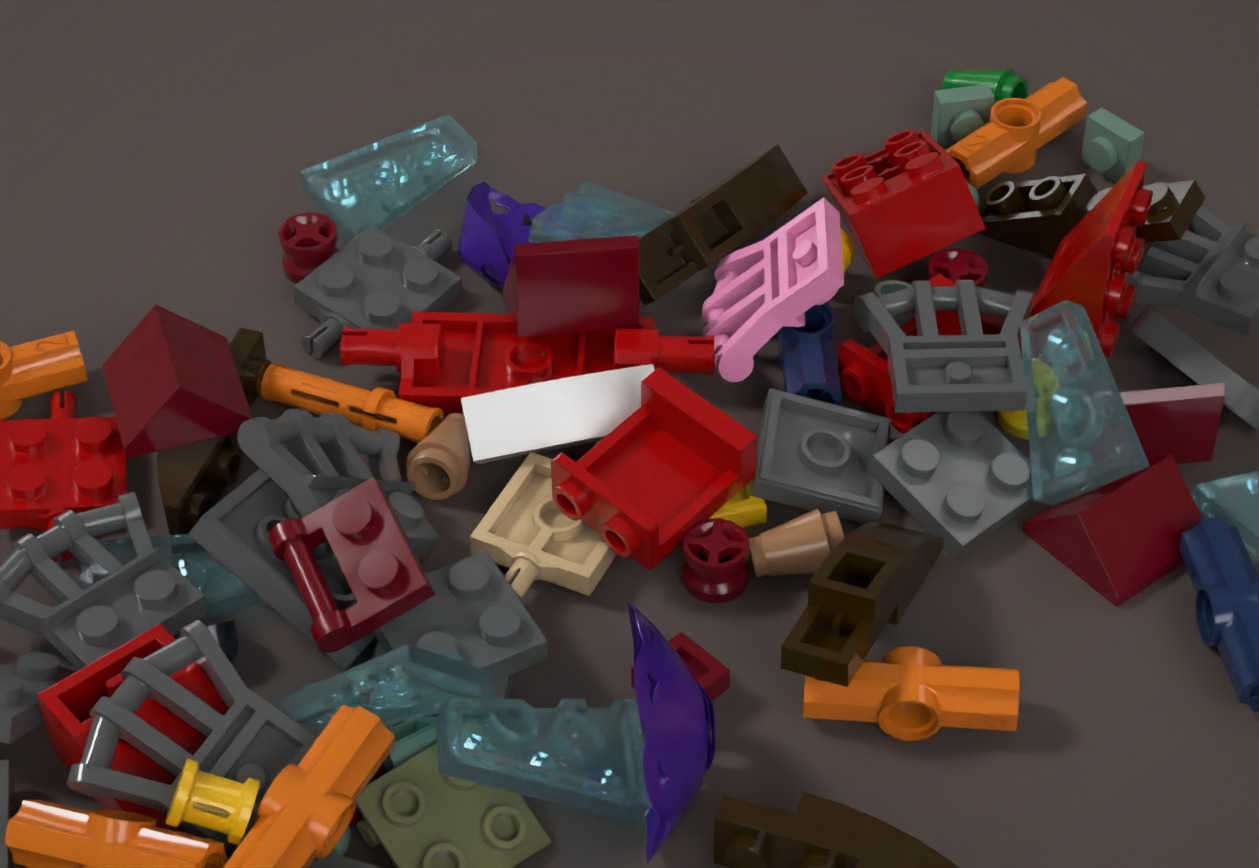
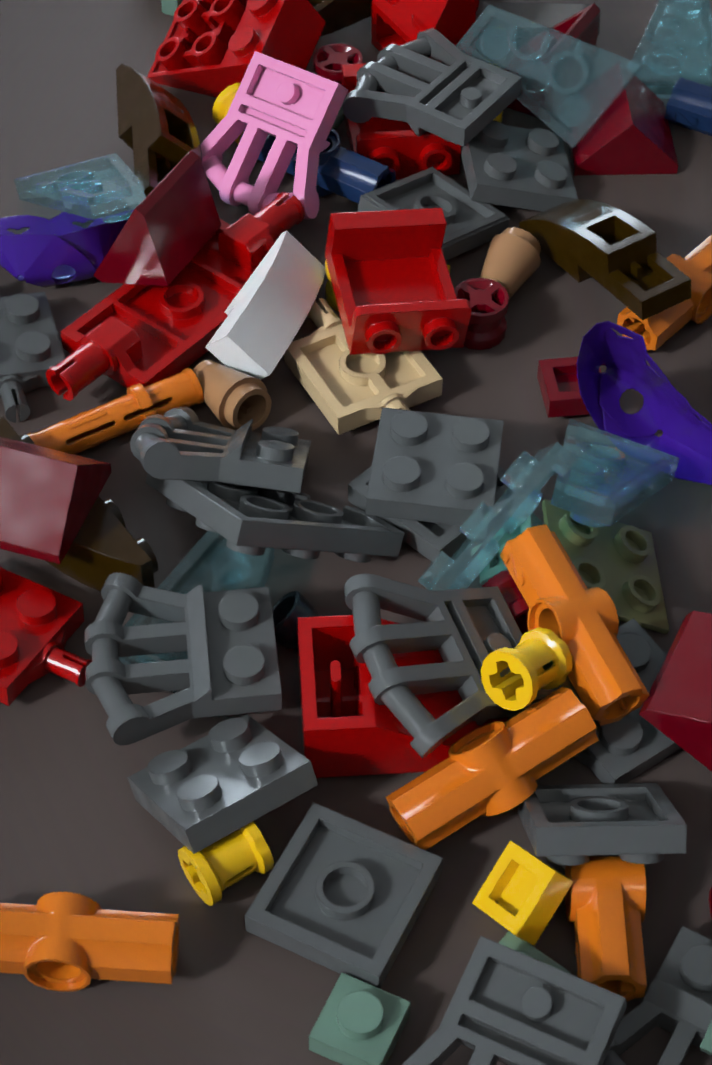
camera: 55 degrees left, 5 degrees up
(372, 556) = (354, 456): dark red plate -> none

